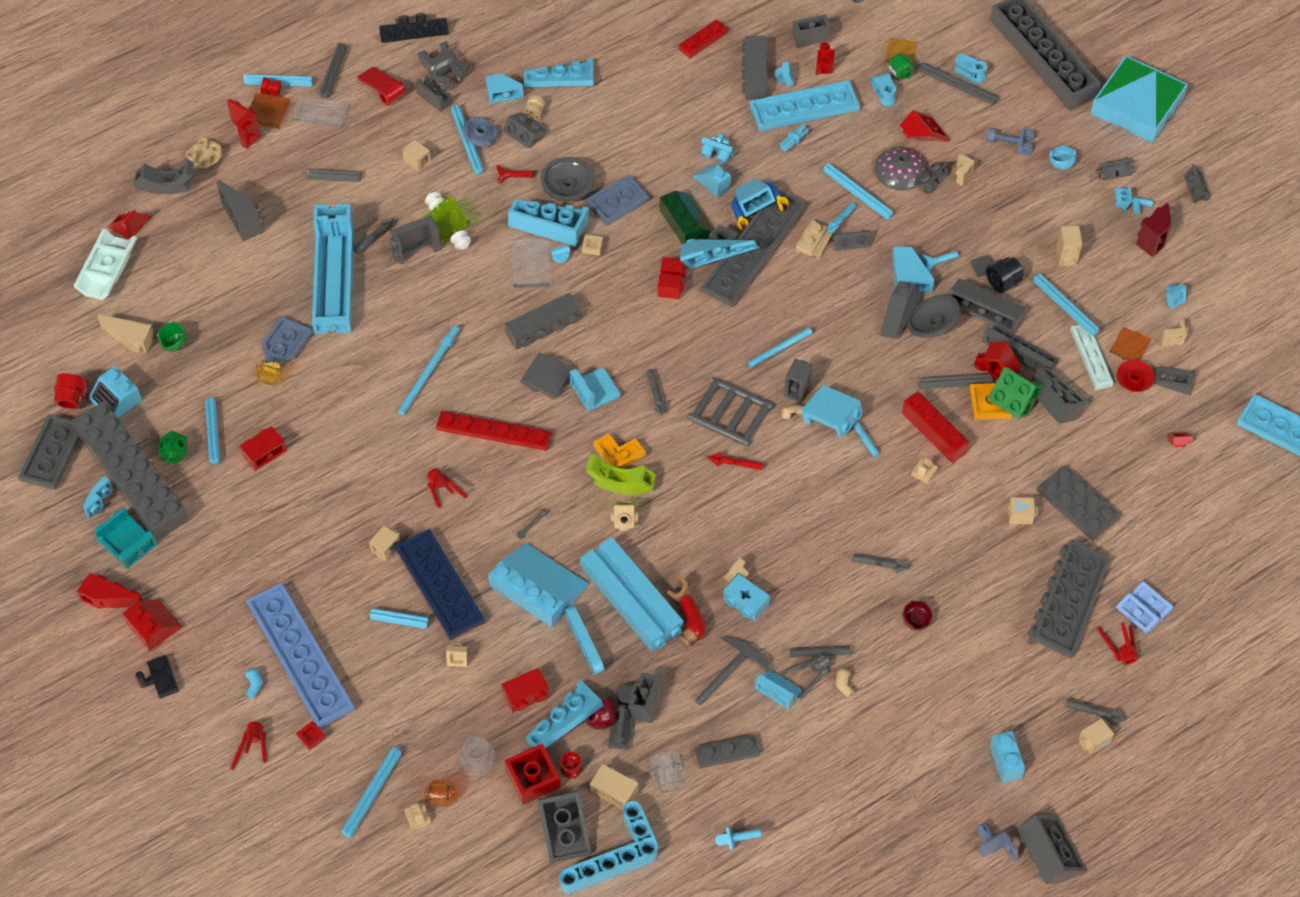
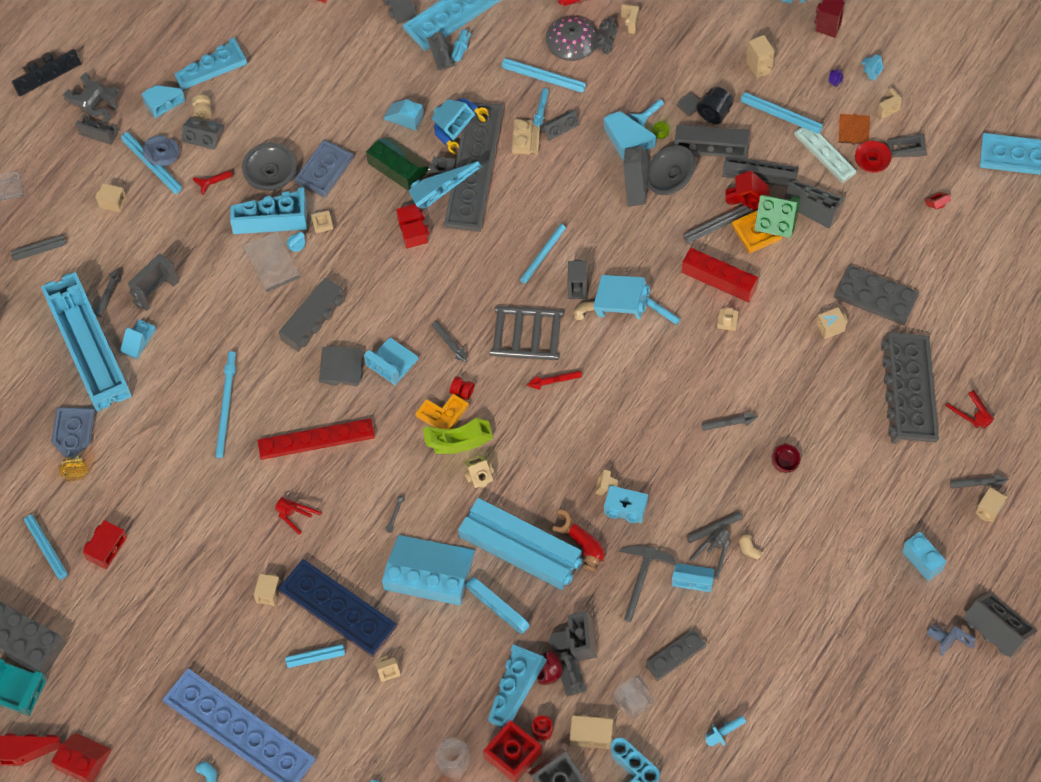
camera: 20 degrees left, 5 degrees up
(173, 447) = (16, 579): green brick -> none
(379, 284) = (137, 338): none -> medium azure slope
(386, 86) = (48, 139): red door -> none
(449, 220) = (174, 248): clear neon green plate -> none
(525, 690) = (467, 675): red brick -> none
(646, 436) = (462, 388): none -> red wheel
(718, 145) = (394, 79): medium azure hips -> none
(772, 135) = (440, 51): none -> dark grey hinge
(943, 274) = (660, 126): none -> clear neon green plate
(1134, 291) = (835, 77): none -> dark purple plate
(1144, 607) = (977, 369): light blue slope -> none

